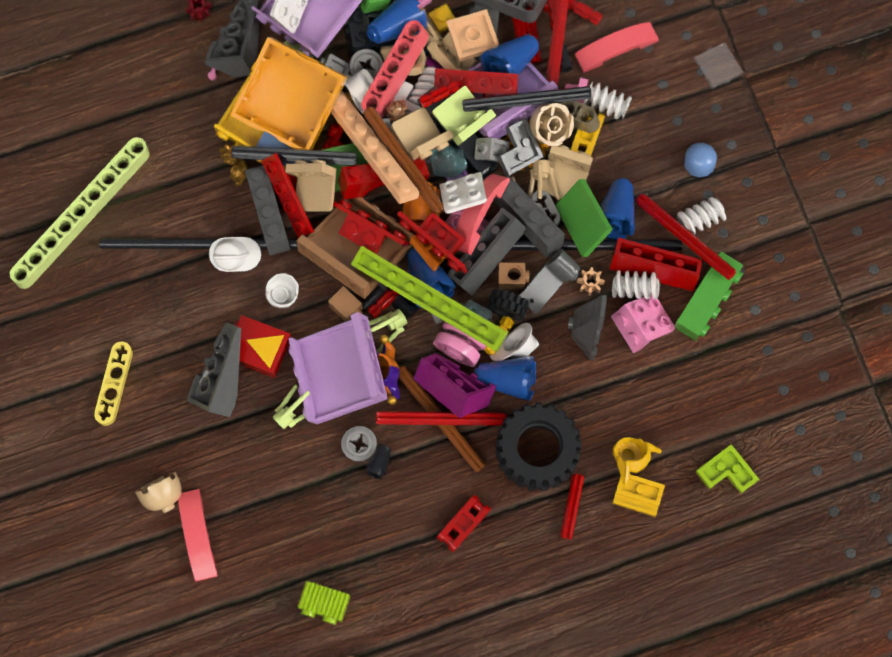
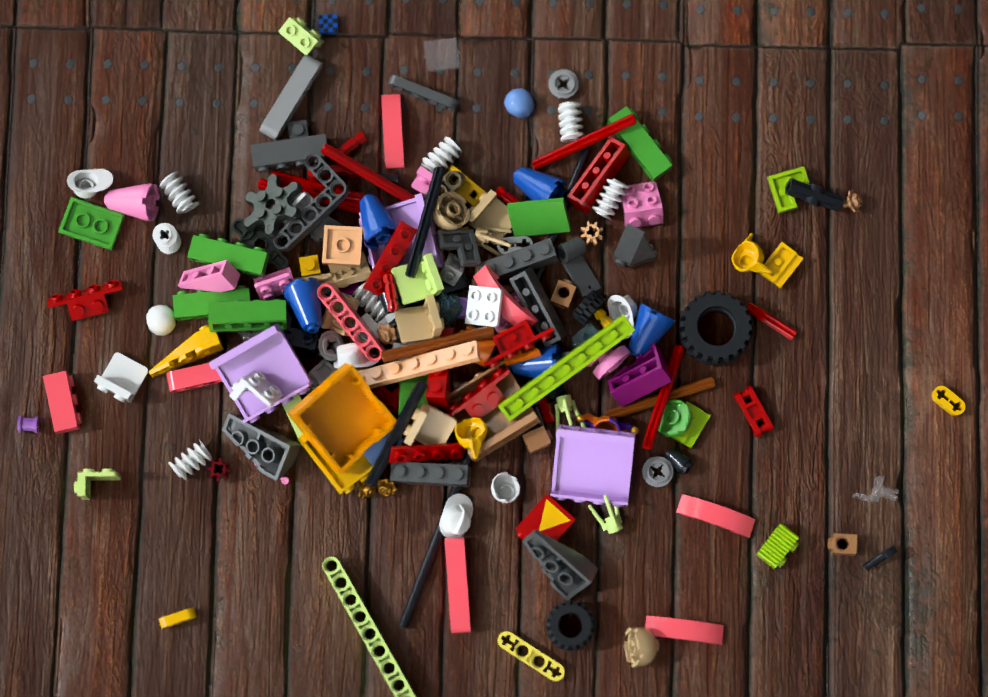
camera: 70 degrees left, 5 degrees up
(34, 24) = (177, 618): none -> yellow beam
(145, 397) = (582, 613): none -> black tyre
(162, 281) = (457, 585): none -> coral beam
(321, 230) = (471, 434): none -> yellow piece
(334, 524) = (716, 515): none -> coral slope
(422, 440) = (676, 419): none -> bright green tile
(423, 459) = (699, 420): none -> lime plate
(594, 182) = (507, 197): none -> red axle
(668, 59) = (423, 93): none -> dark grey beam
(731, 501) = (814, 195): none -> black piece
(737, 186) = (563, 75): none -> light grey gear
(742, 548) = (853, 201): none -> medium nougat plant

